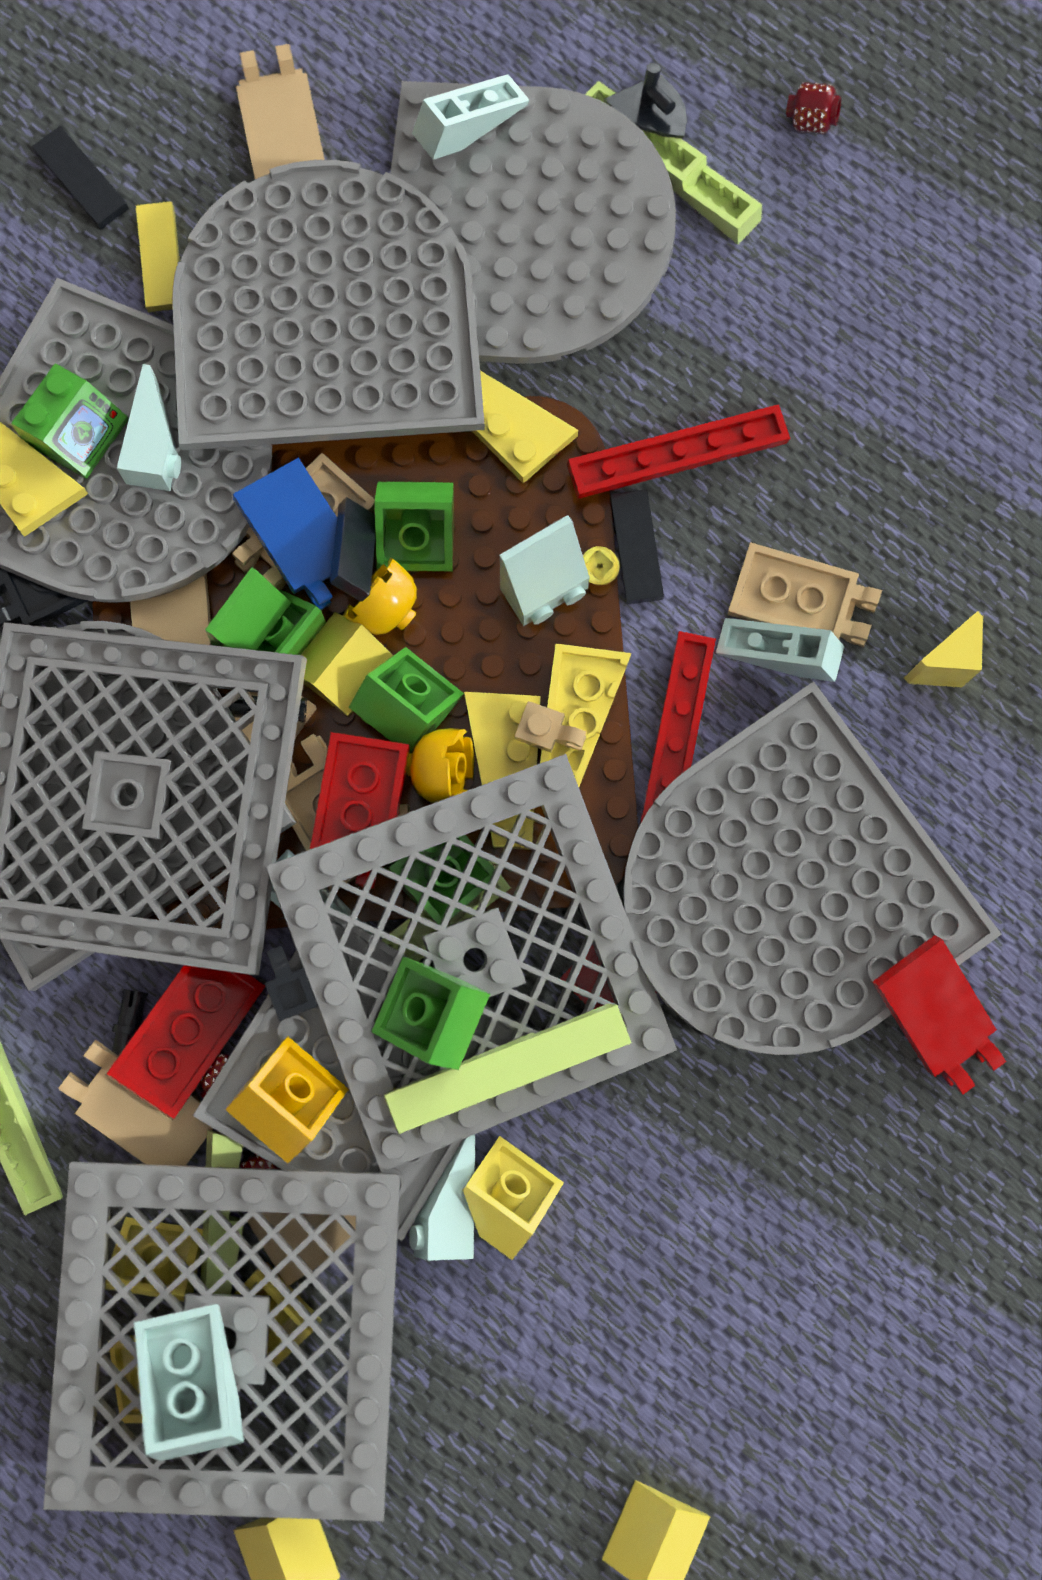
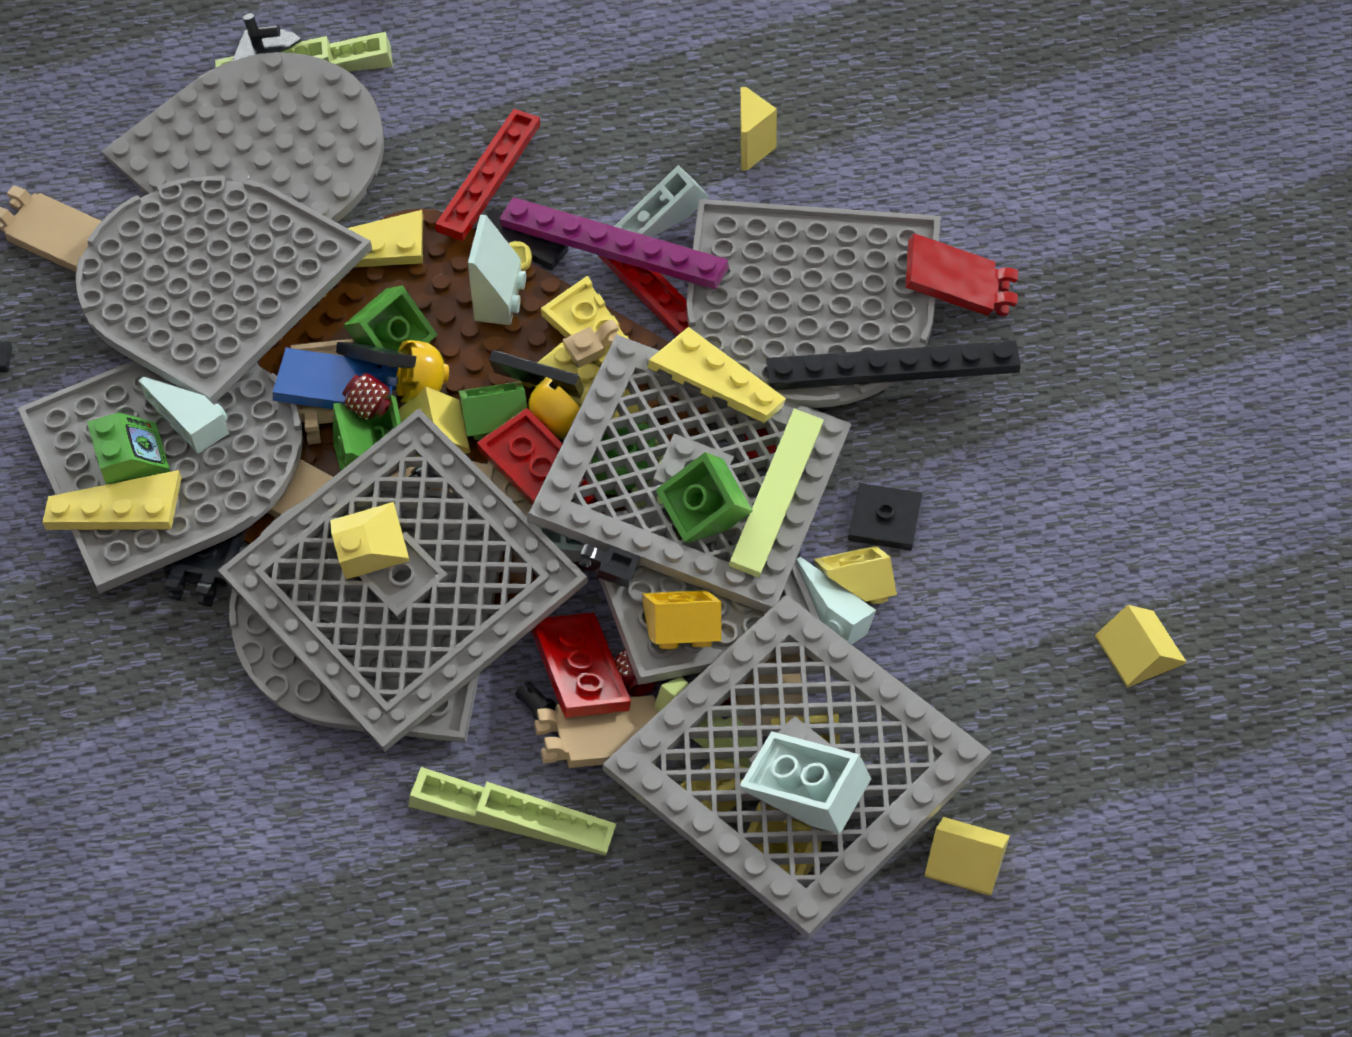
camera: 45 degrees left, 25 degrees down
(126, 734) = (369, 540): none -> light yellow slope
(158, 253) = (64, 350): light yellow tile -> none
(289, 588) = (366, 396): none -> dark red head
(464, 115) = (168, 125): light aqua slope -> none
(468, 711) = (535, 373): none -> black tile
(600, 887) = (705, 366): none -> light yellow wing
(603, 1165) = (885, 516): none -> black plate
(691, 648) = (614, 243): none -> magenta plate
(770, 1046) = (893, 365): none -> black plate
(801, 593) = (628, 181): tan tile -> none

